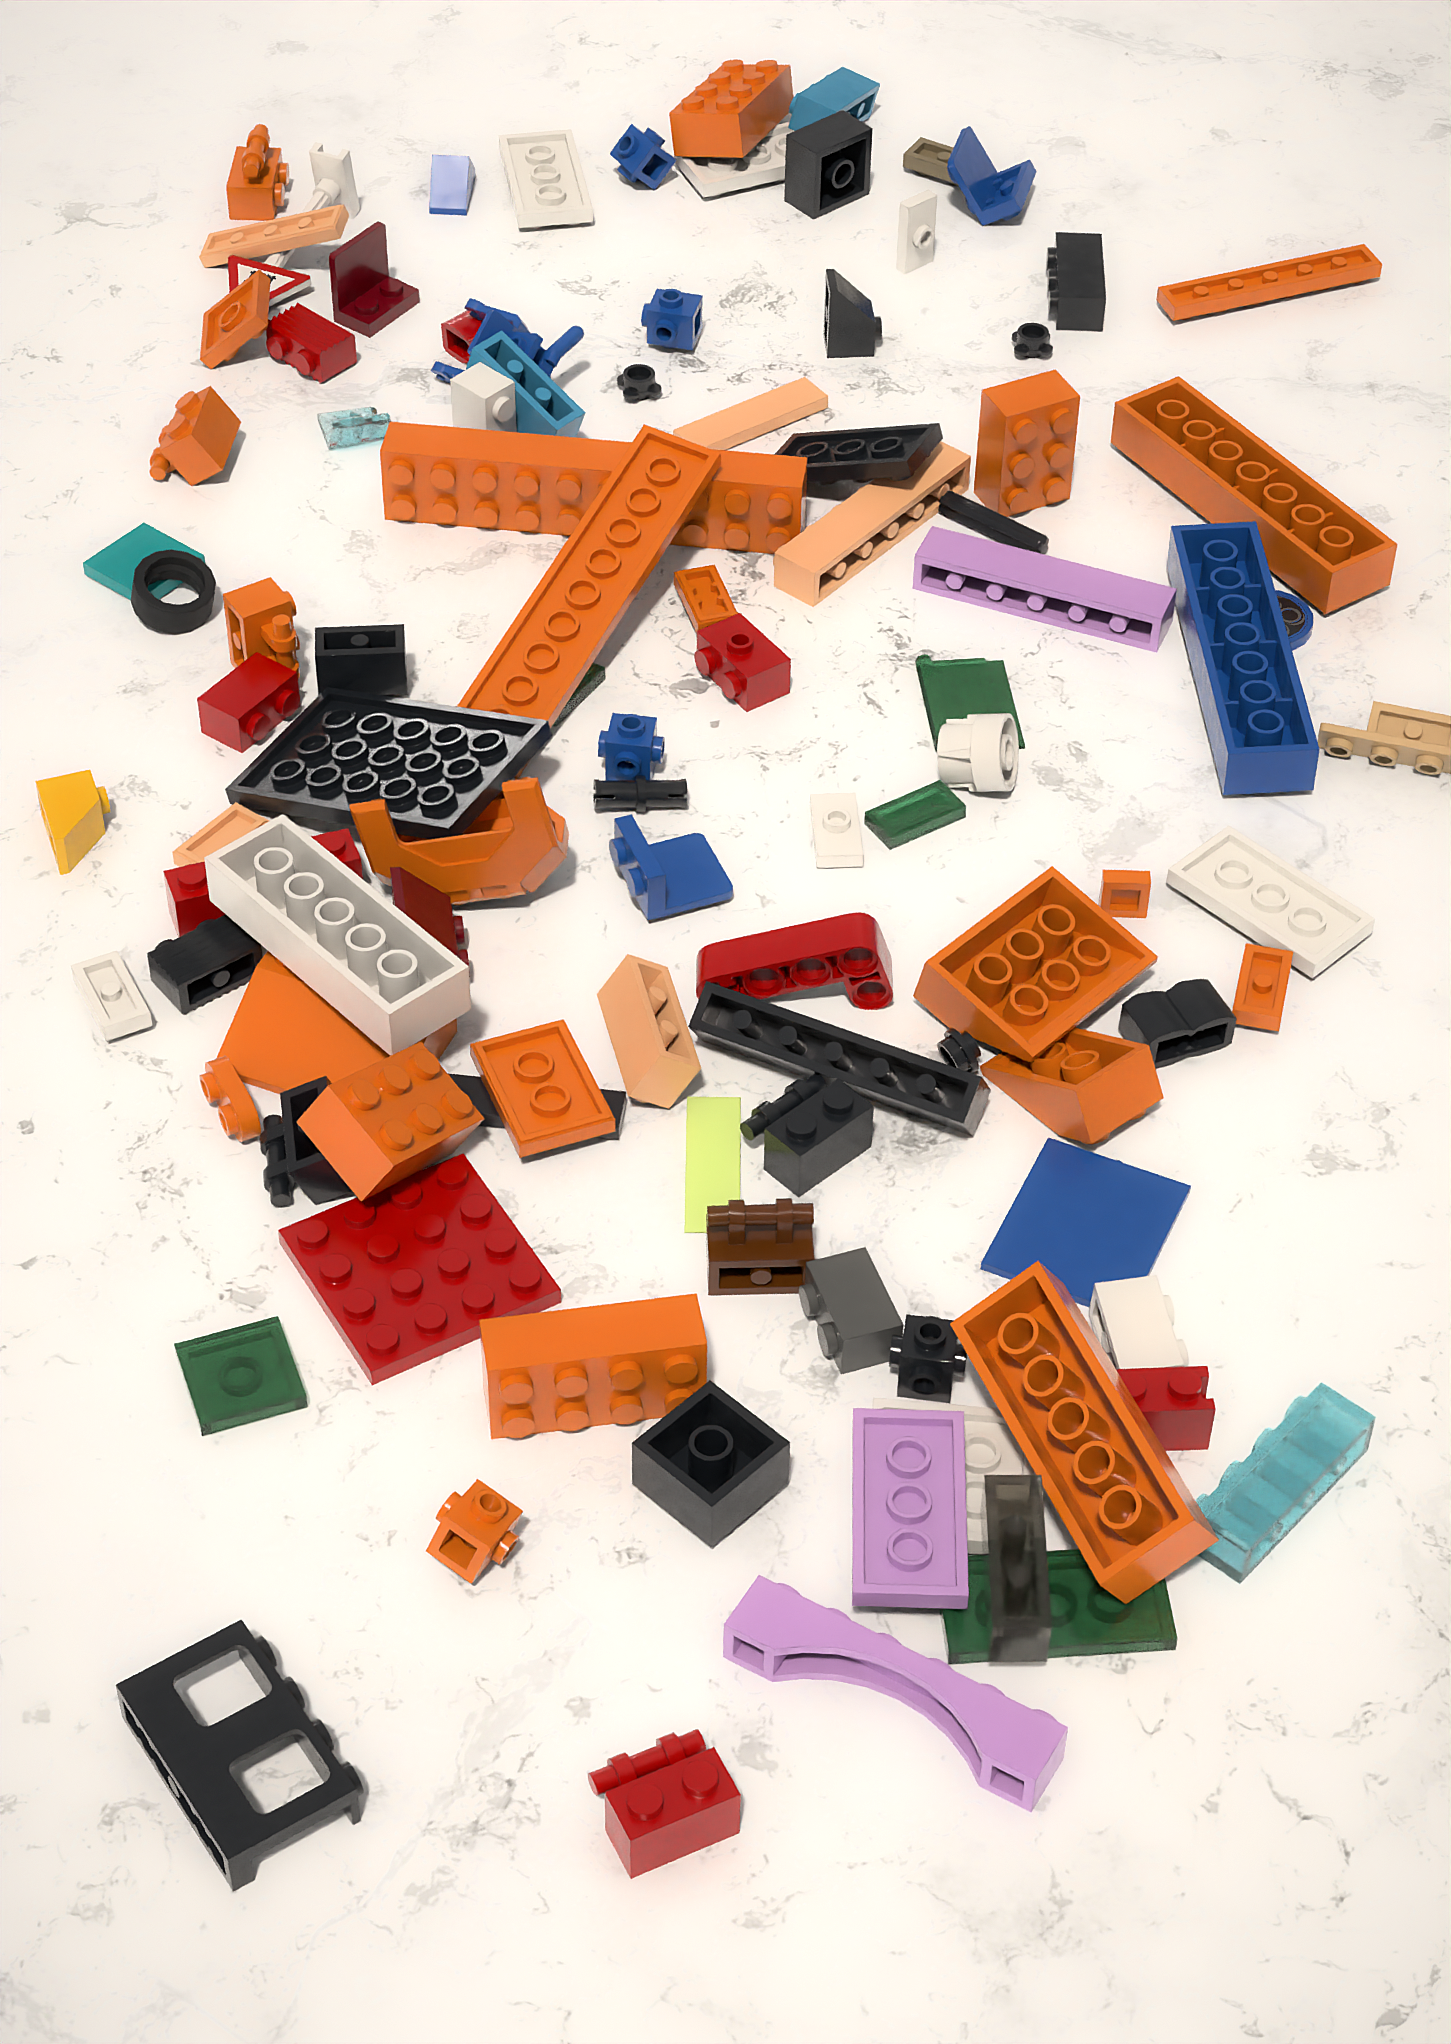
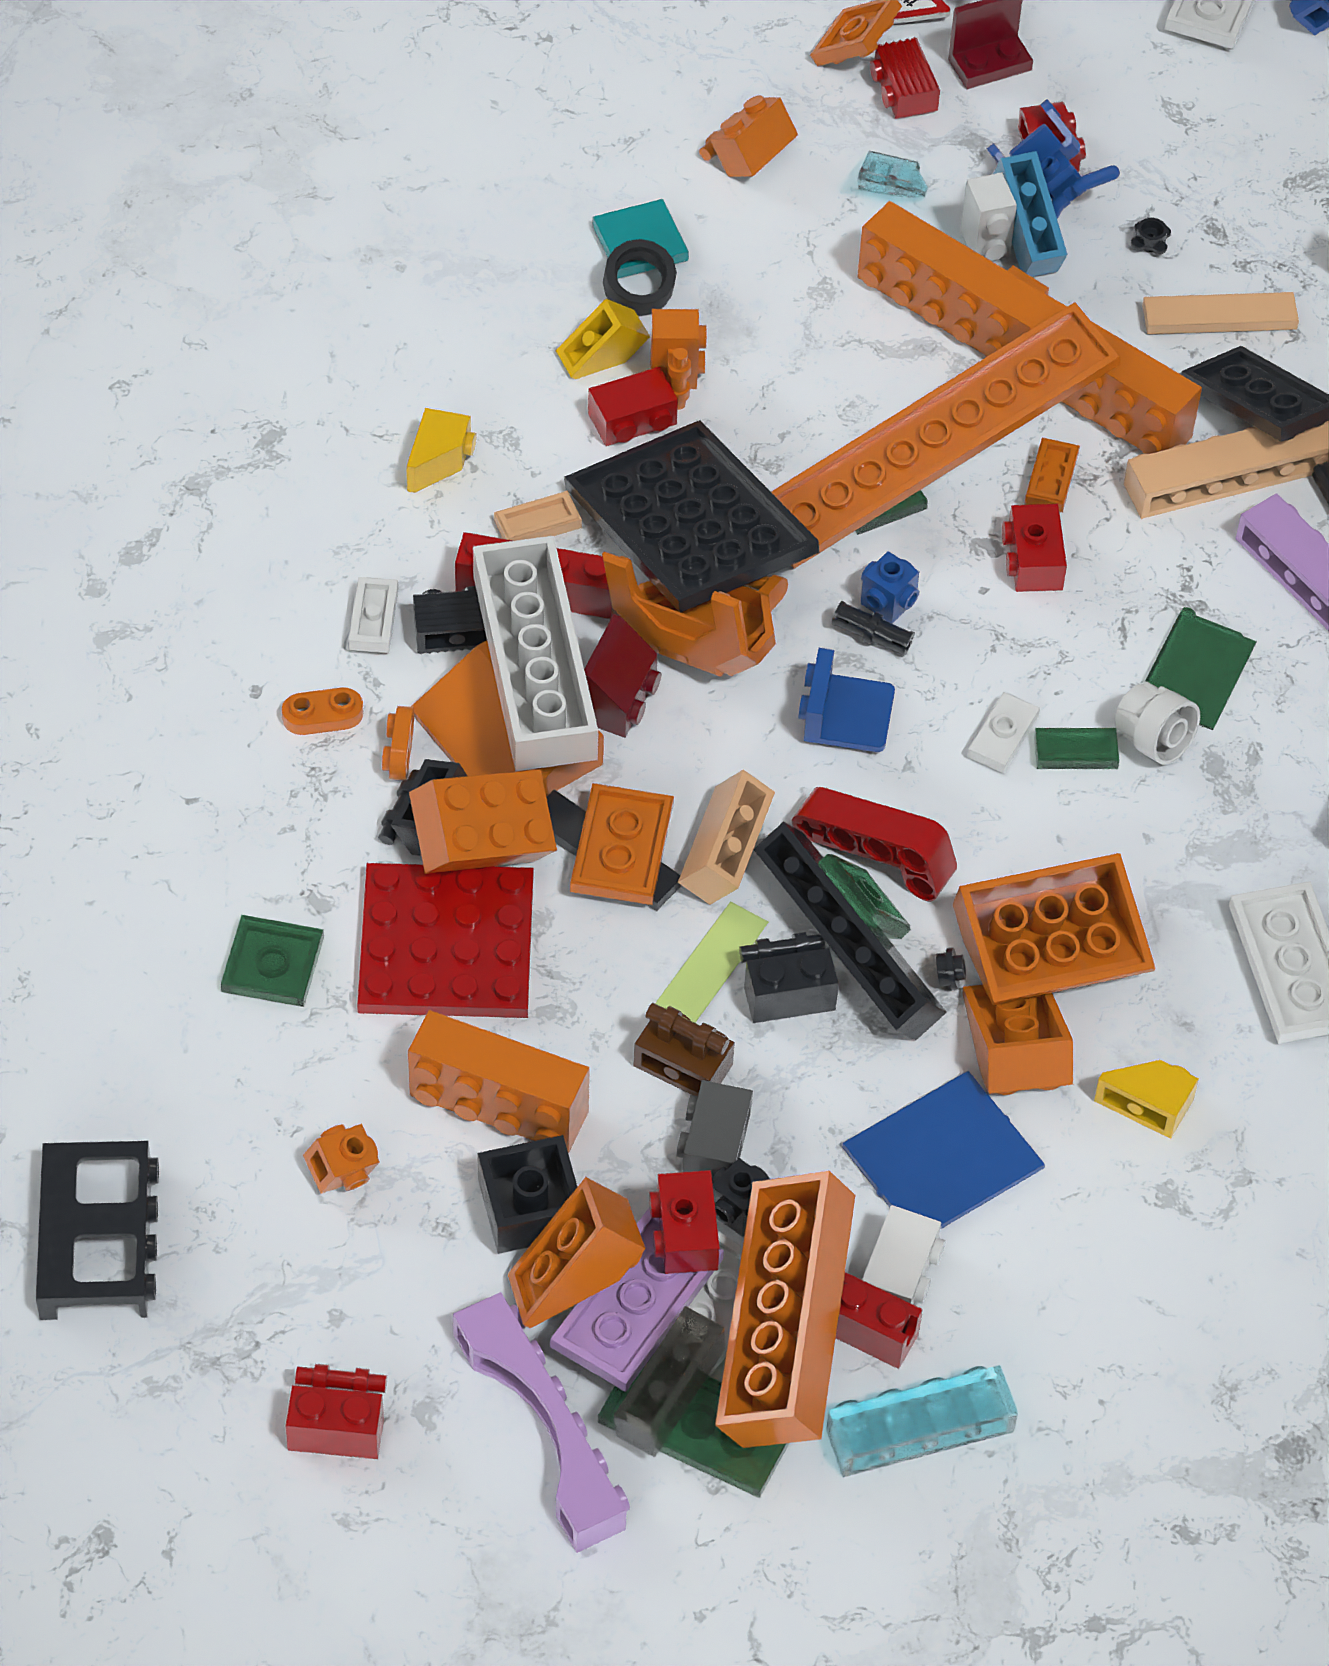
camera: 30 degrees right, 10 degrees up
(118, 1110) = (322, 711): none -> orange plate
(174, 659) = (603, 340): none -> yellow slope
(362, 659) = (737, 409): black brick -> none
(673, 319) = (1219, 186): blue brick -> none
(816, 1493) = (577, 1253): none -> orange slope
(828, 1013) = (865, 896): none -> clear green tile
(913, 1396) = (687, 1222): none -> red brick
(1125, 893) = (1181, 899): orange plate -> none
(1178, 1022) = (1134, 1027): black brick -> none
(1241, 1073) = (1149, 1094): none -> yellow slope
(1262, 986) = (1227, 1031): orange plate -> none

